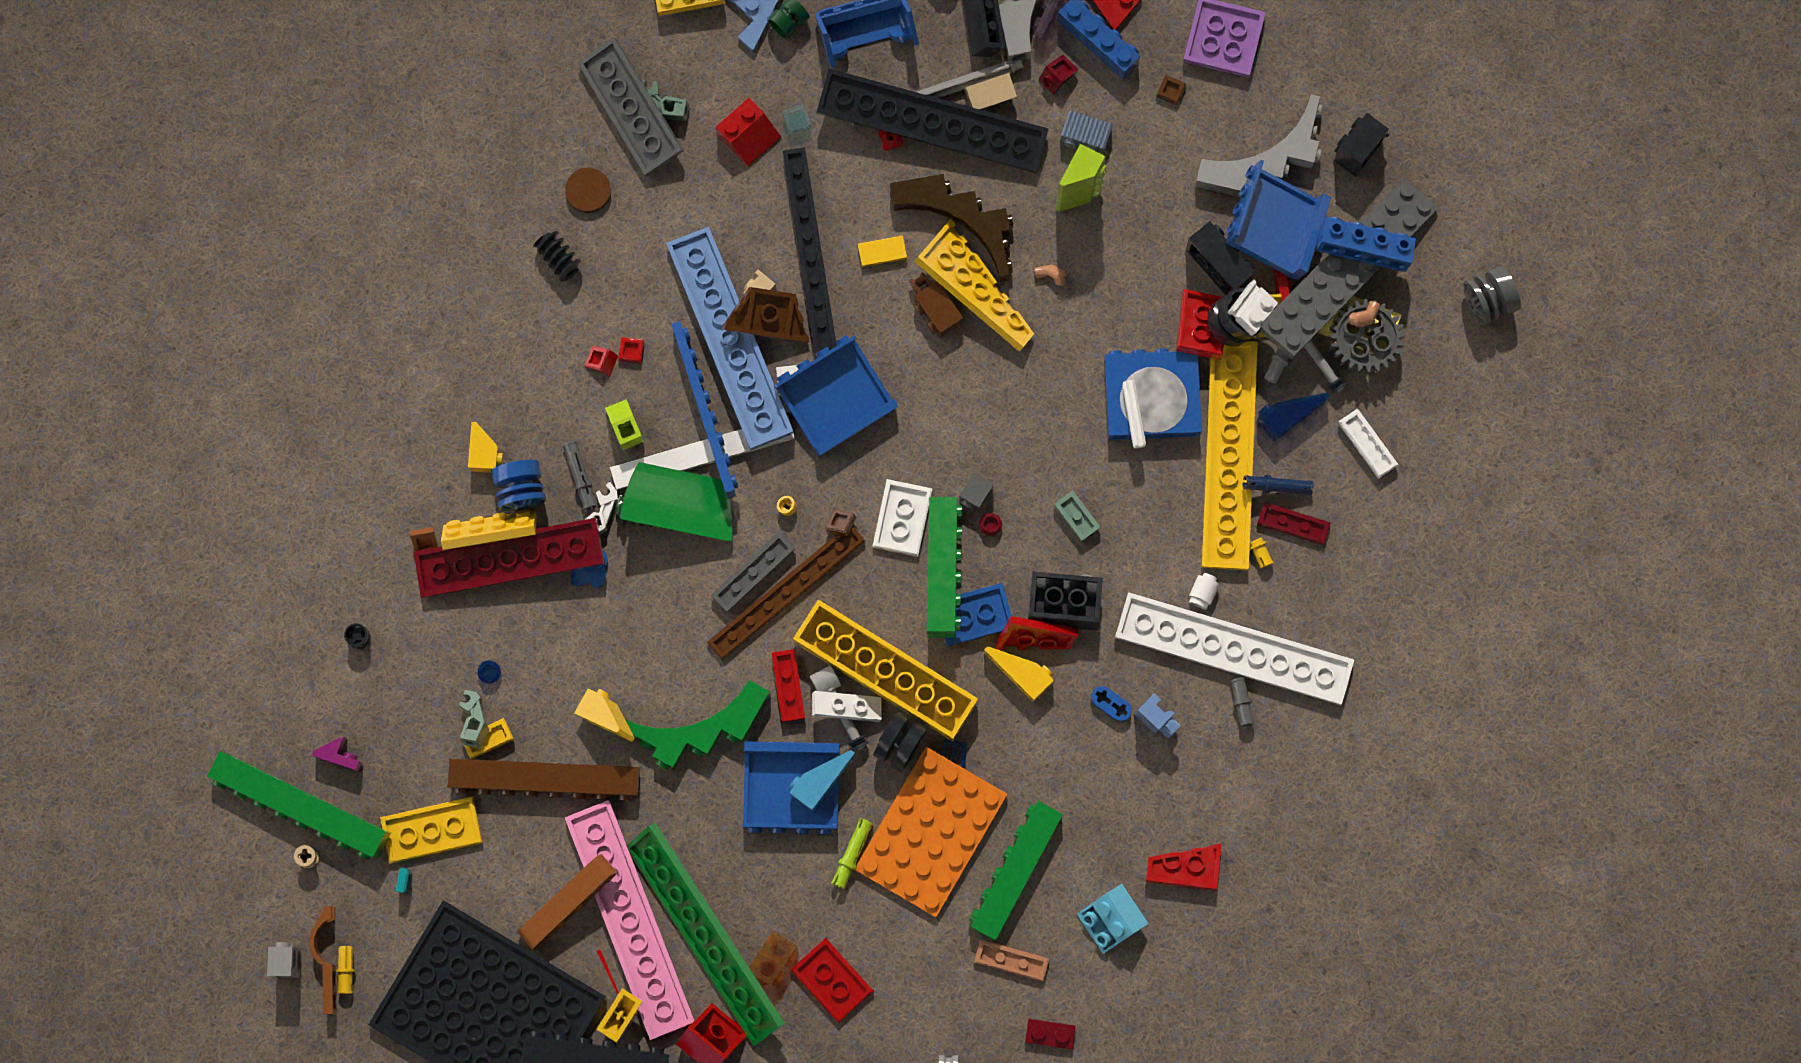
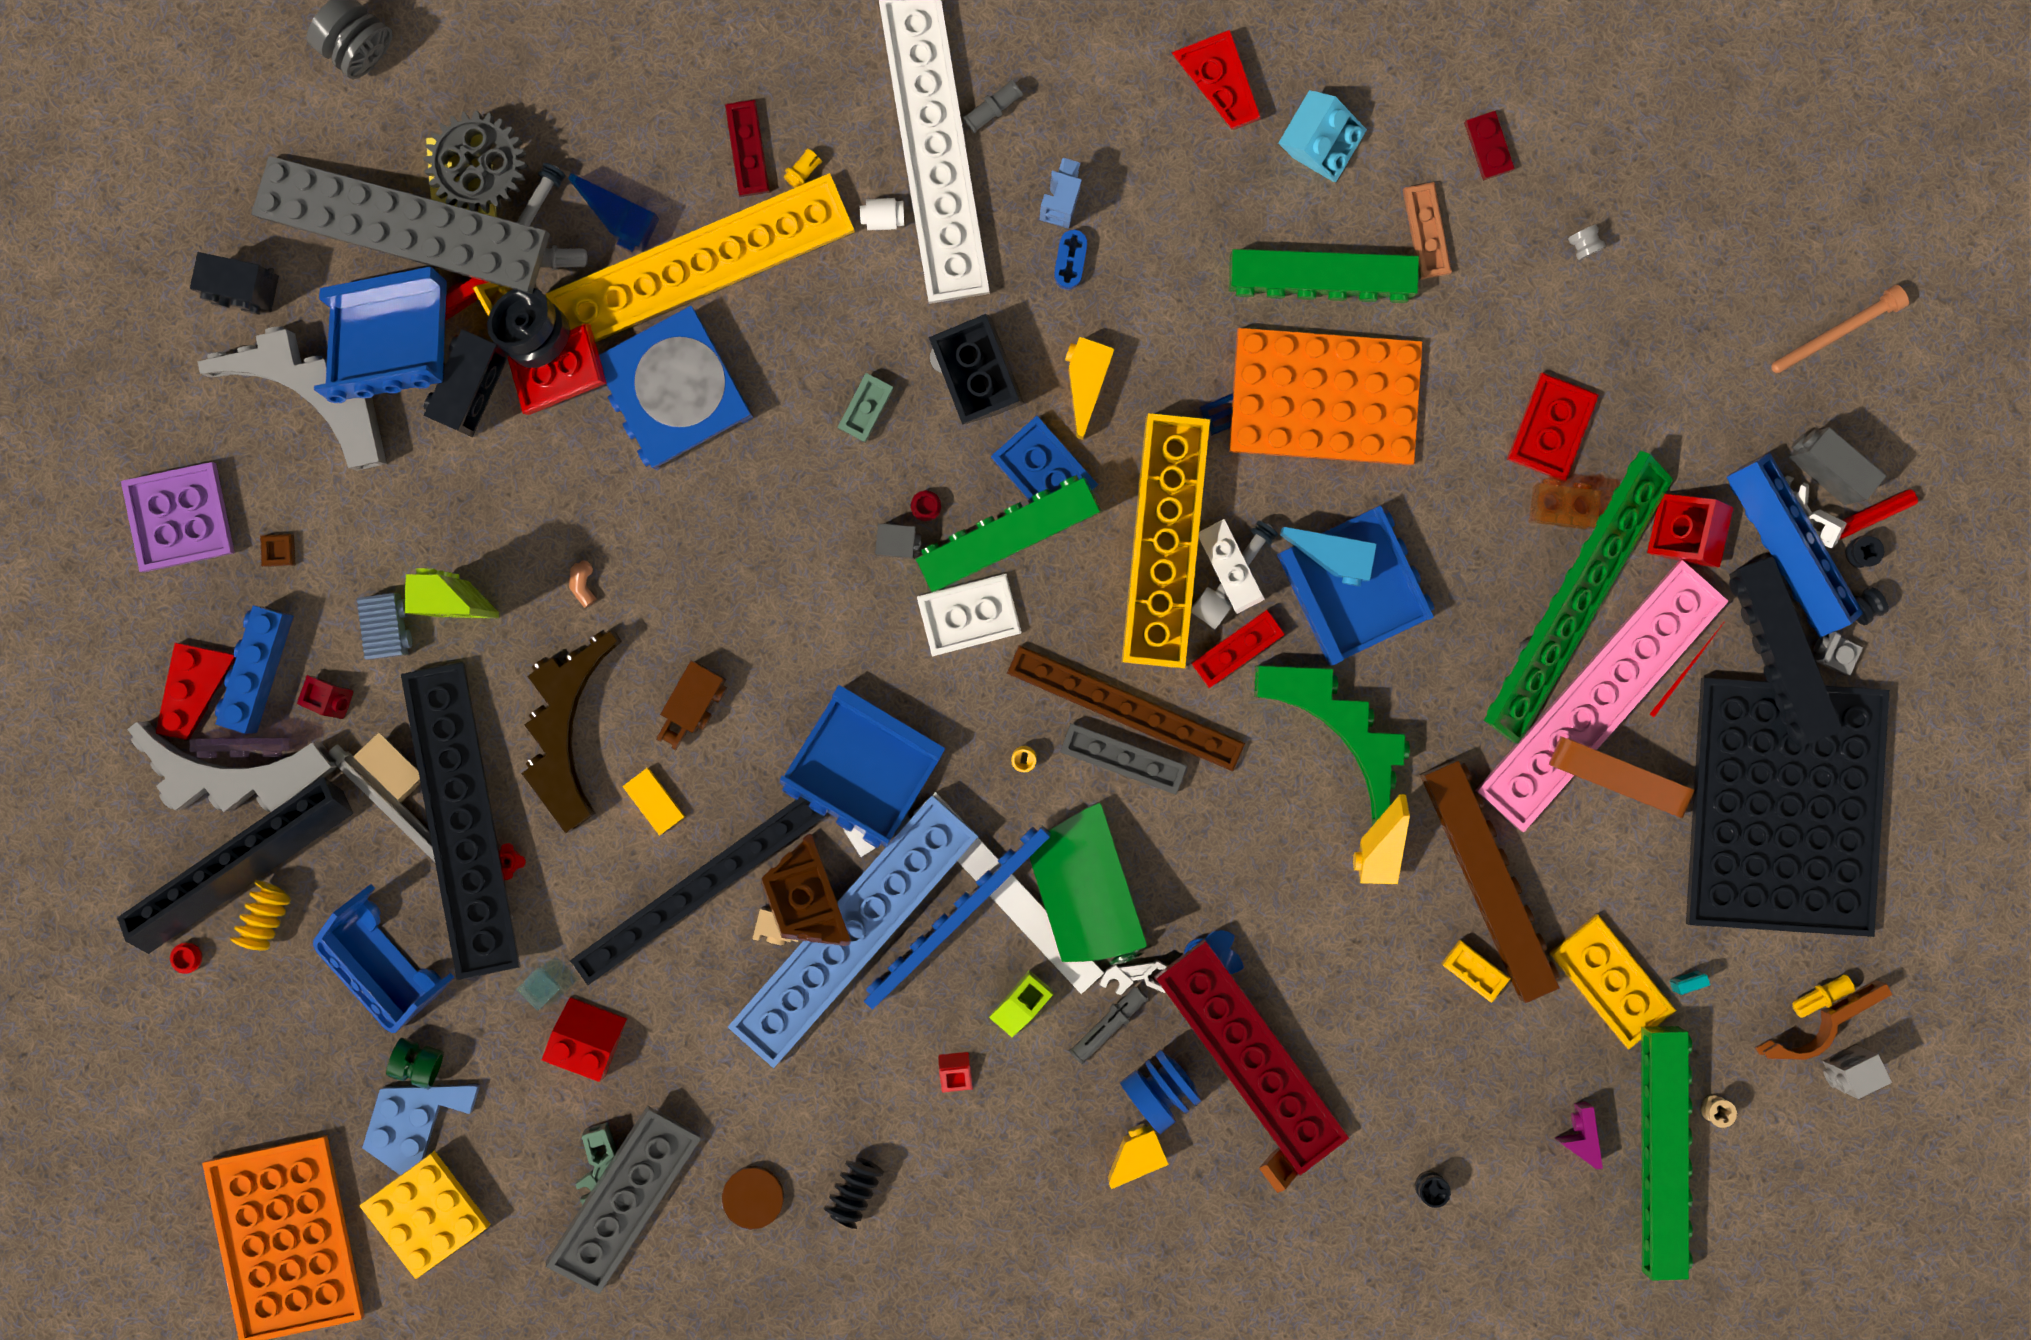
camera: 115 degrees left, 10 degrees up
(470, 736) = (1449, 1003): sand green piece -> none
(489, 529) = (1231, 1099): yellow plate -> none
(489, 672) = (1395, 1010): clear blue plate -> none
(620, 1015) = (1723, 648): yellow slope -> none
(631, 350) = (925, 1042): red tile -> none
(840, 522) = (1012, 684): reddish brown tile -> none
(854, 848) = (1398, 475): lime pin -> none
(897, 740) = (1243, 478): black wheel -> none
(969, 280) = (640, 677): yellow wing -> none
(1028, 632) = (1037, 396): red wing -> none
(1134, 414) = (710, 395): white axle -> none
(1252, 307) = (508, 310): white plate -> none
(1268, 484) = (715, 196): dark blue pin -> none
(1366, 244) = (359, 211): blue brick -> none
(1366, 317) = (453, 170): nougat arm -> none
(1368, 443) = (606, 104): white plate -> none

